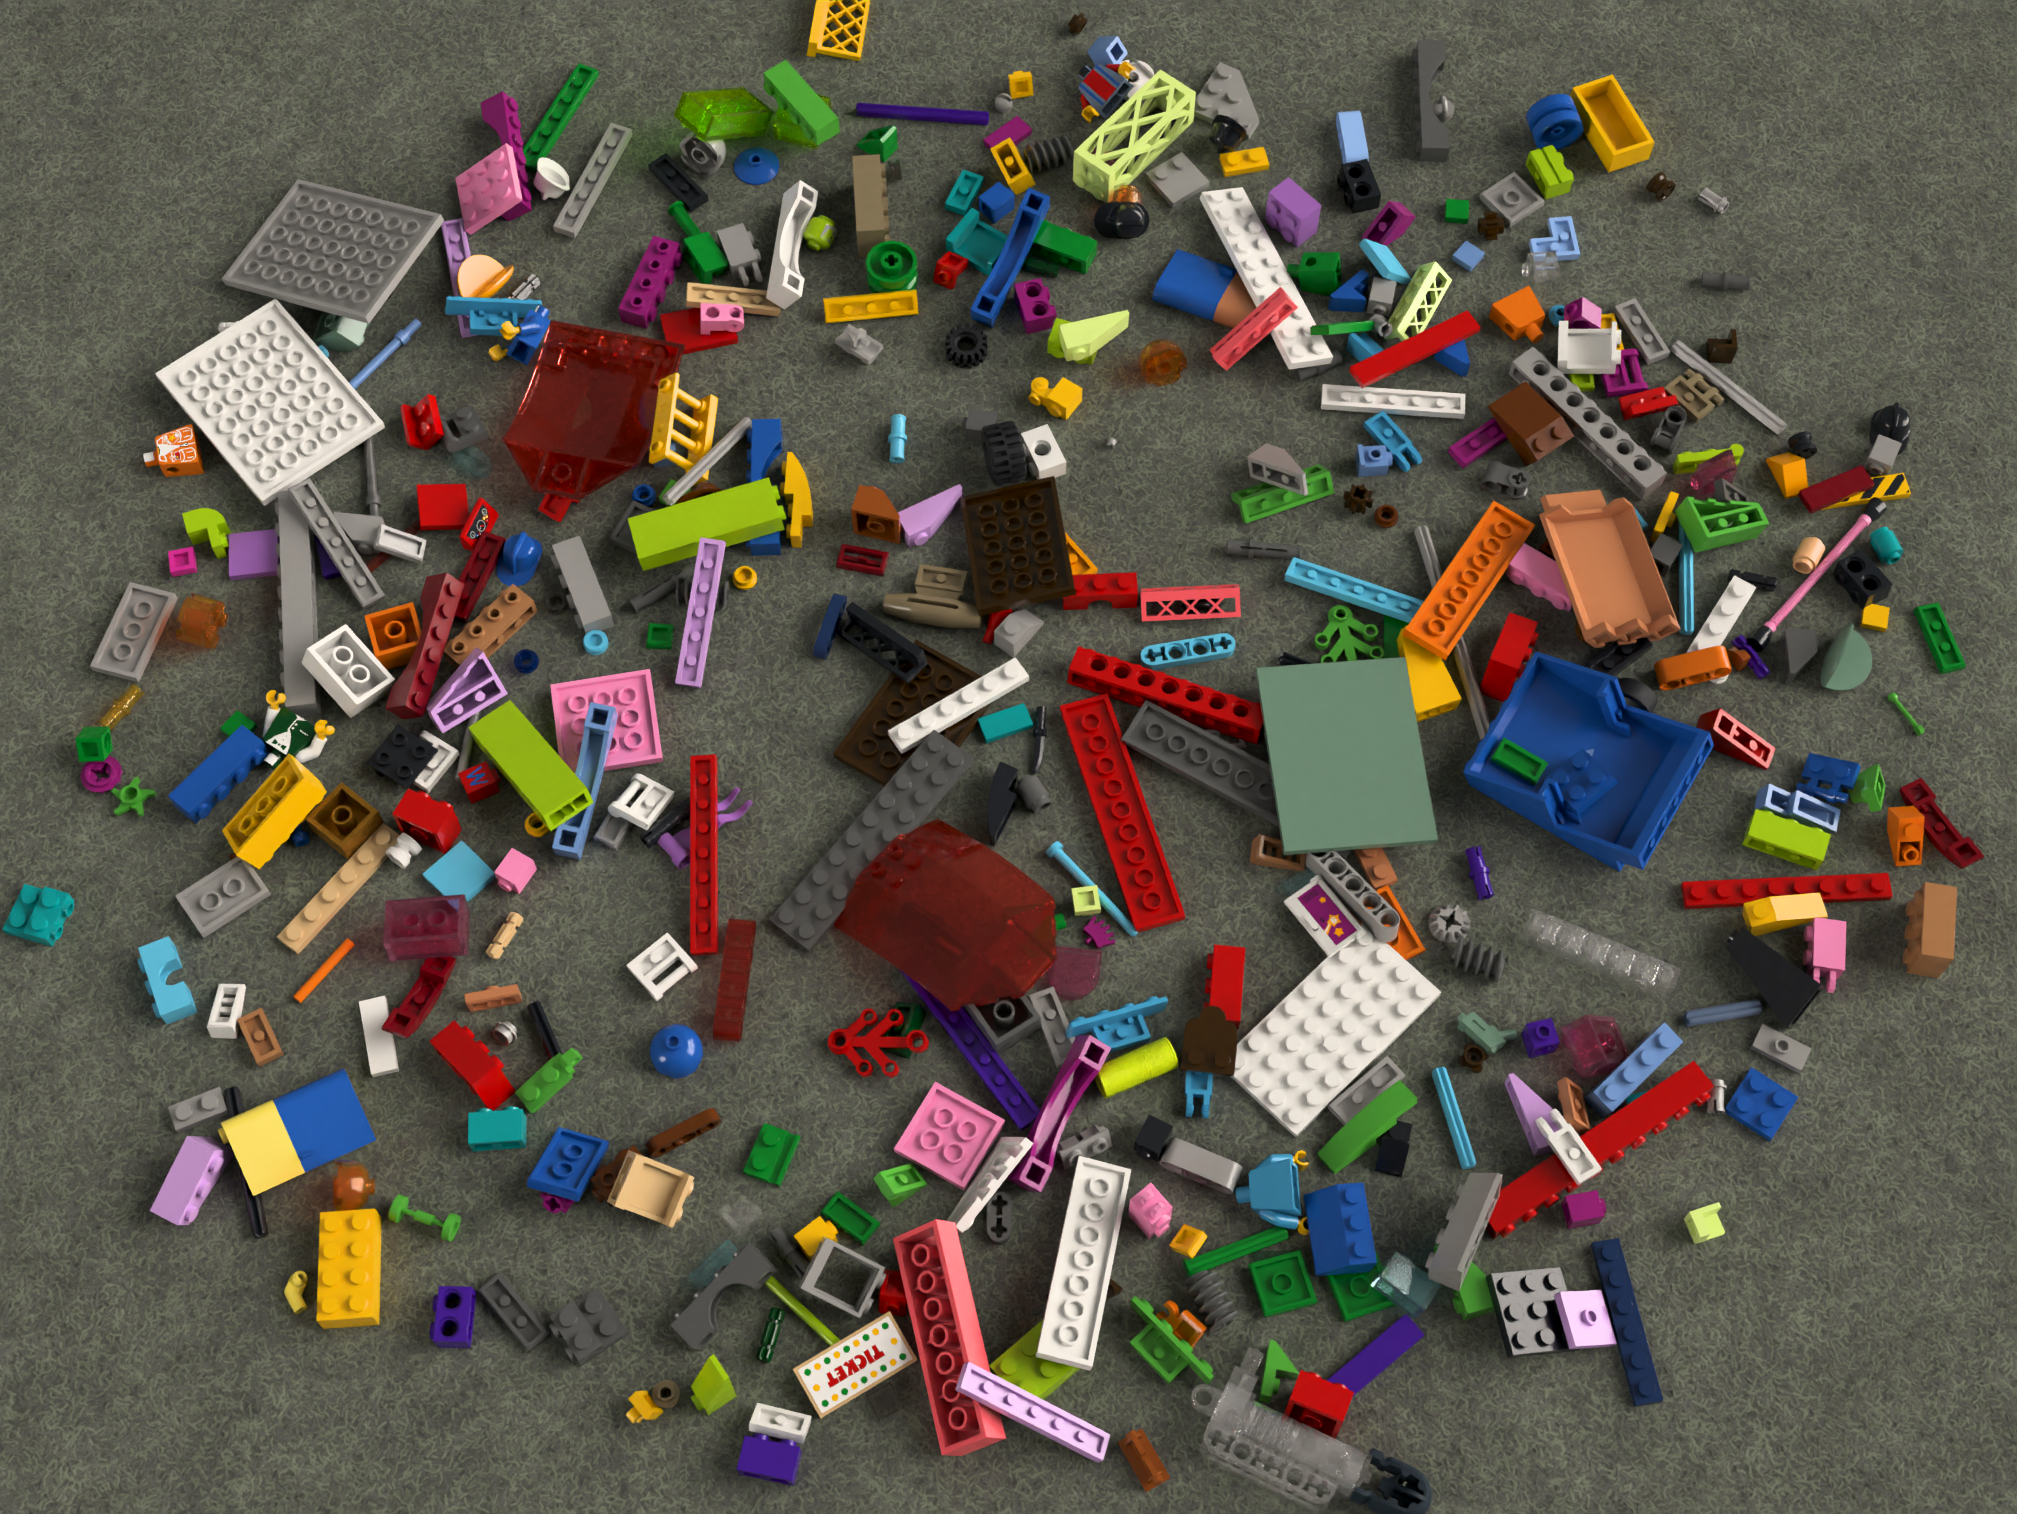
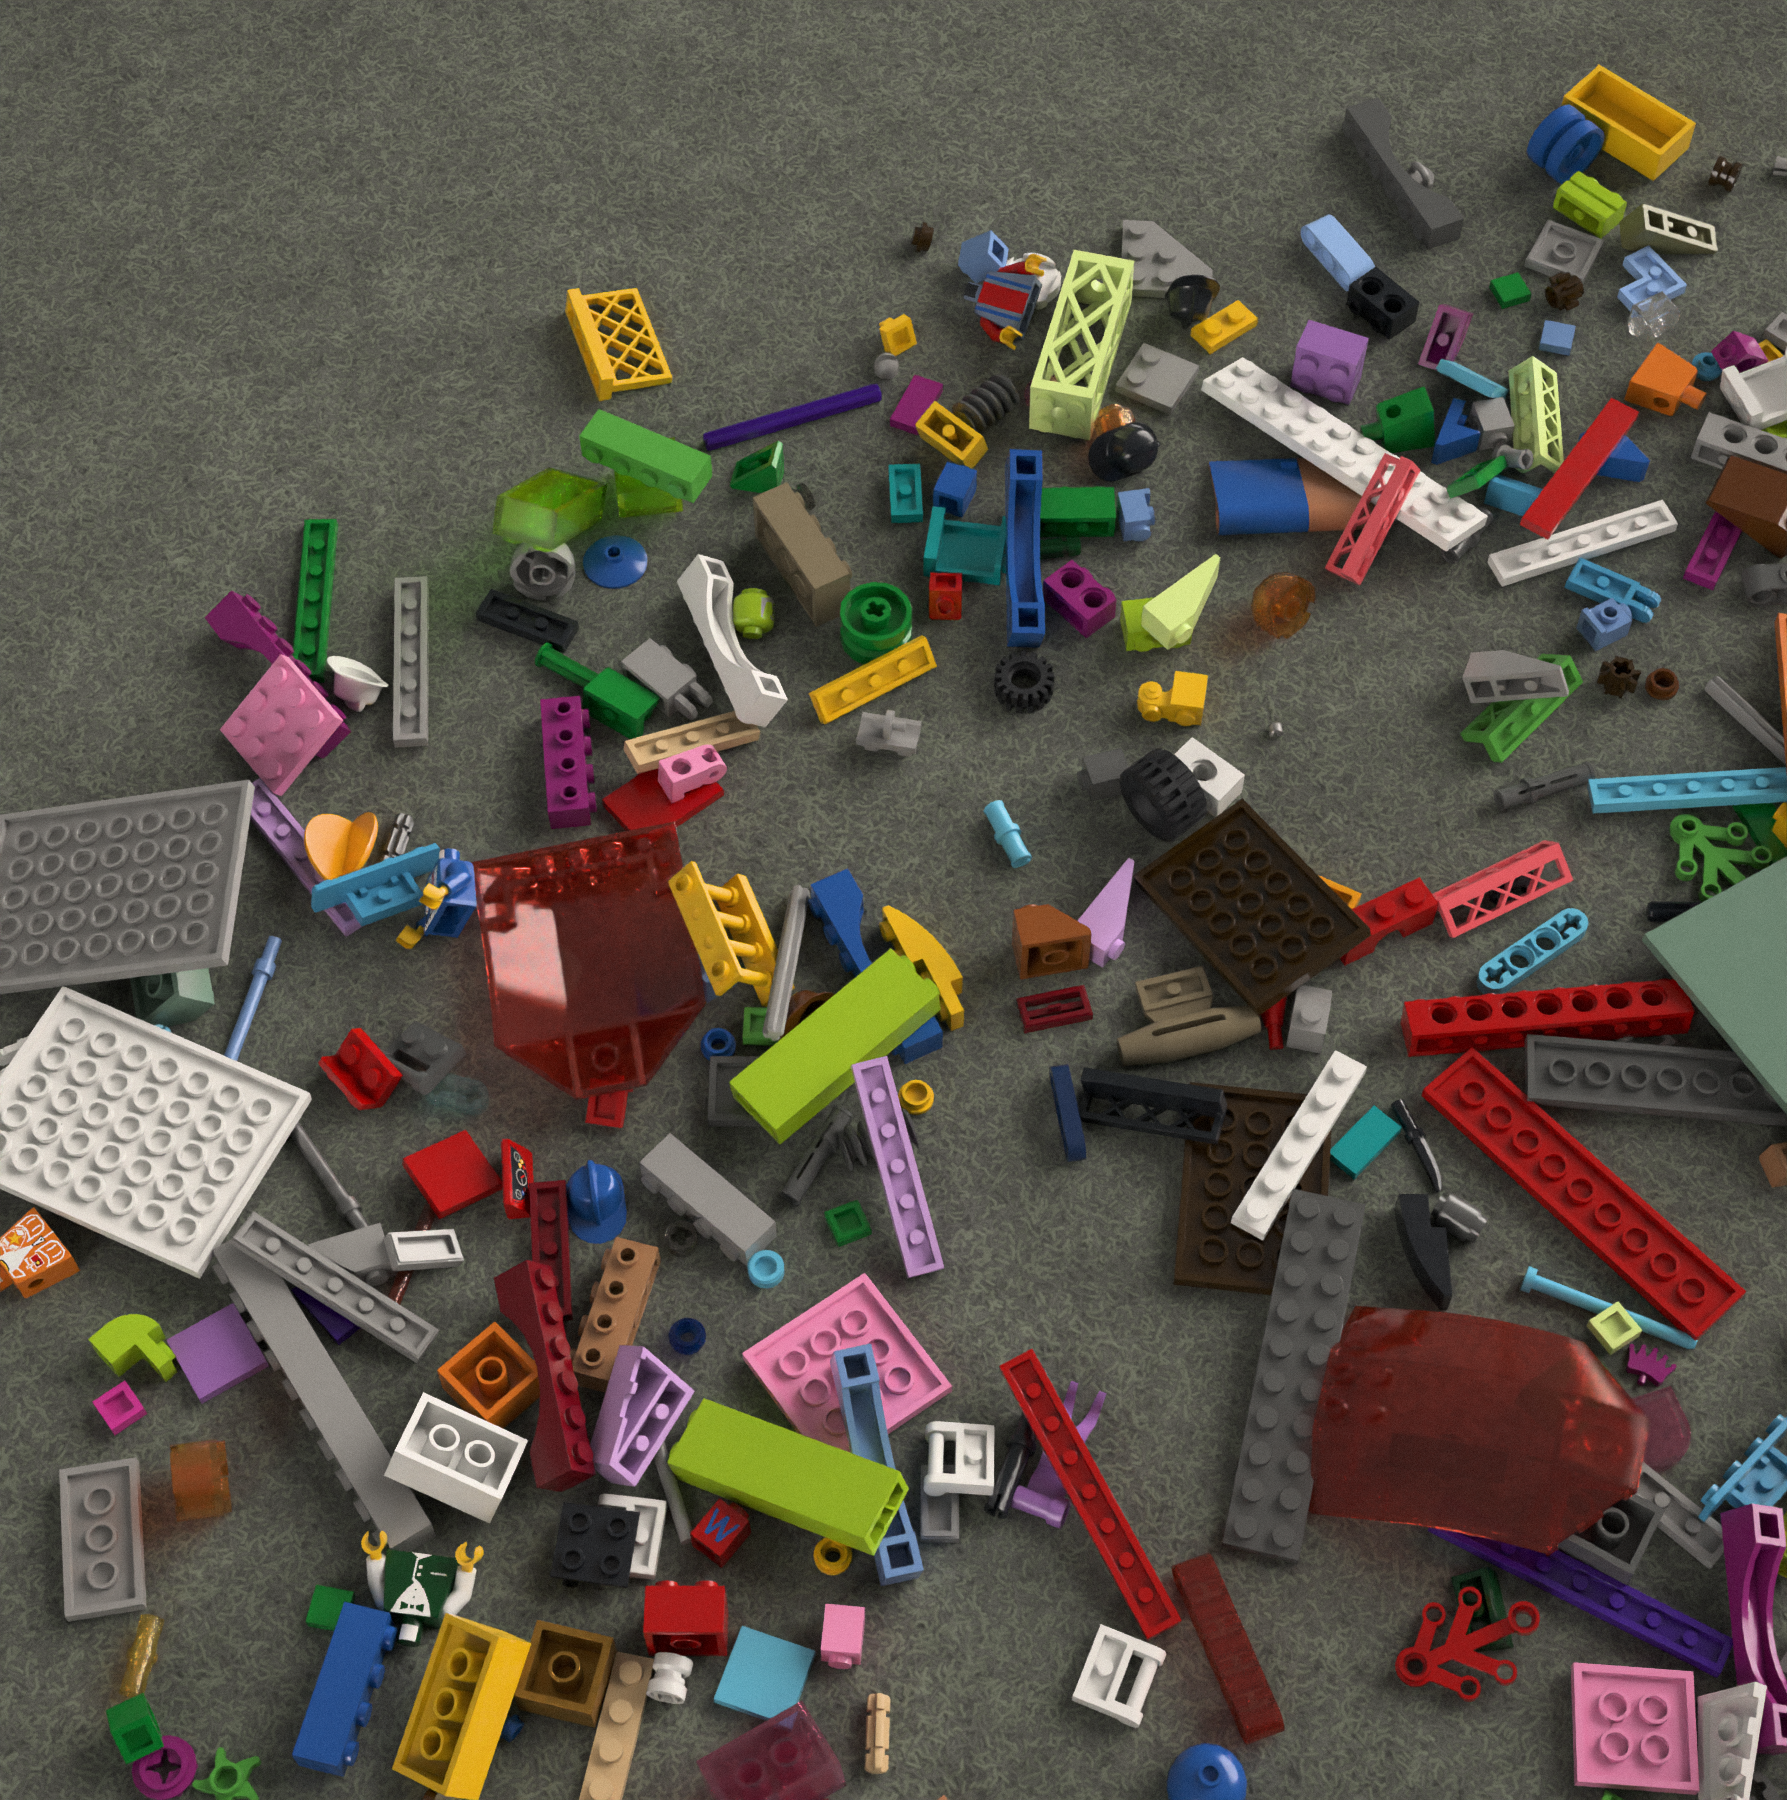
camera: 25 degrees left, 5 degrees down
(1104, 265) = (1135, 514): none -> medium blue brick
(1590, 212) = (1666, 232): none -> olive slope

